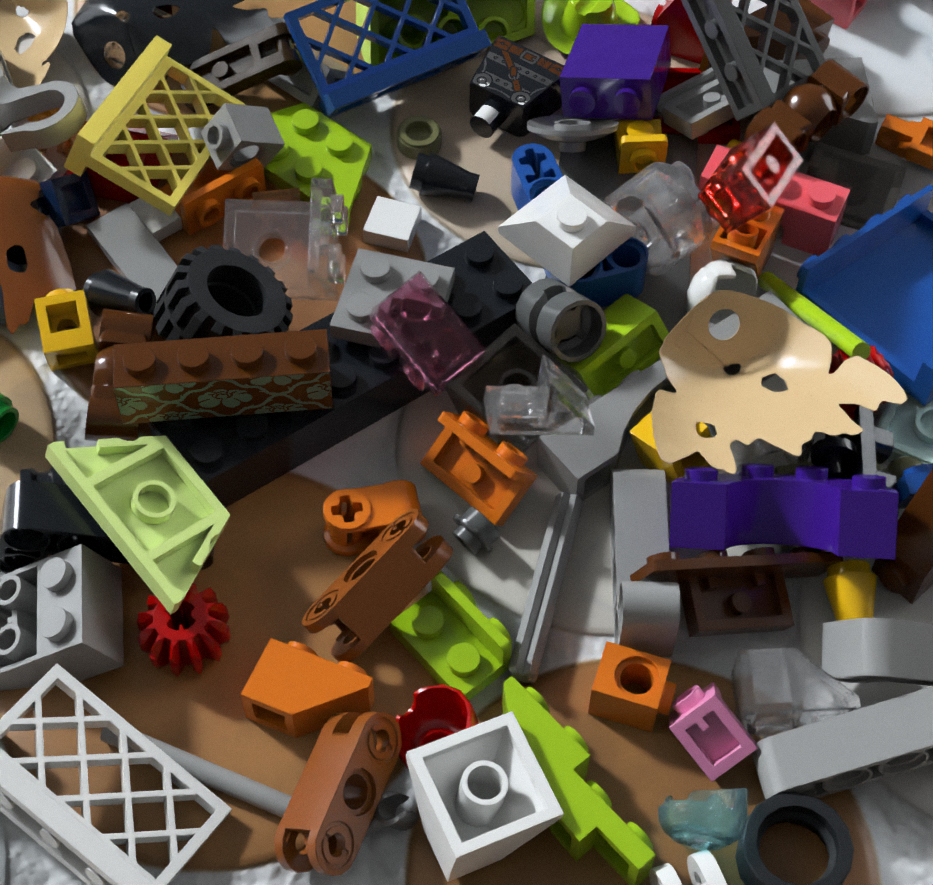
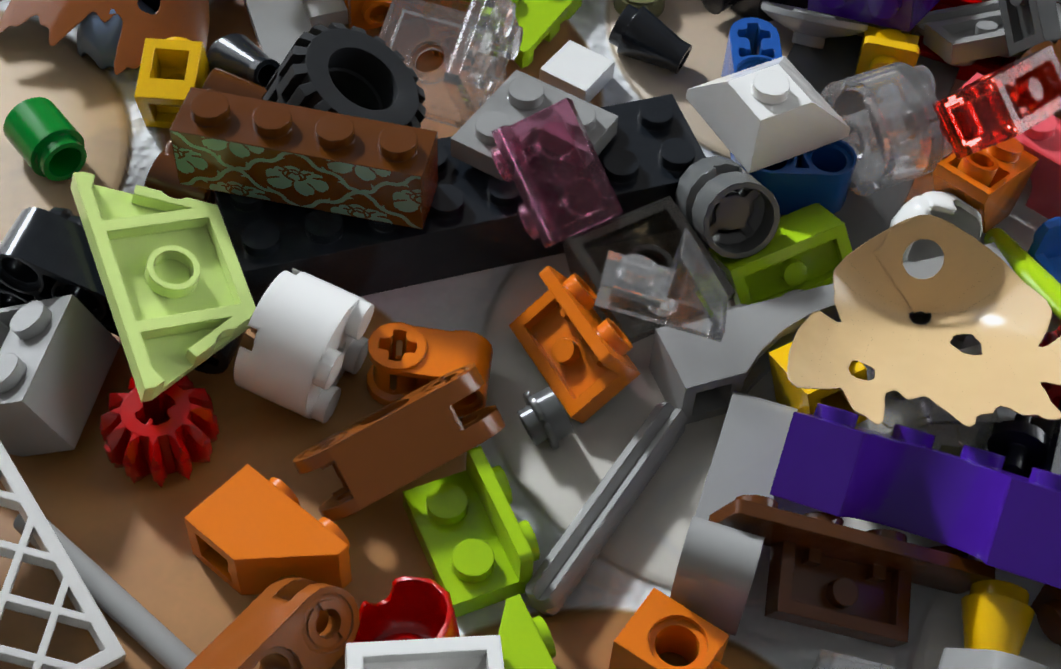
camera: 15 degrees right, 5 degrees down
(274, 528) = (304, 344): none -> white brick

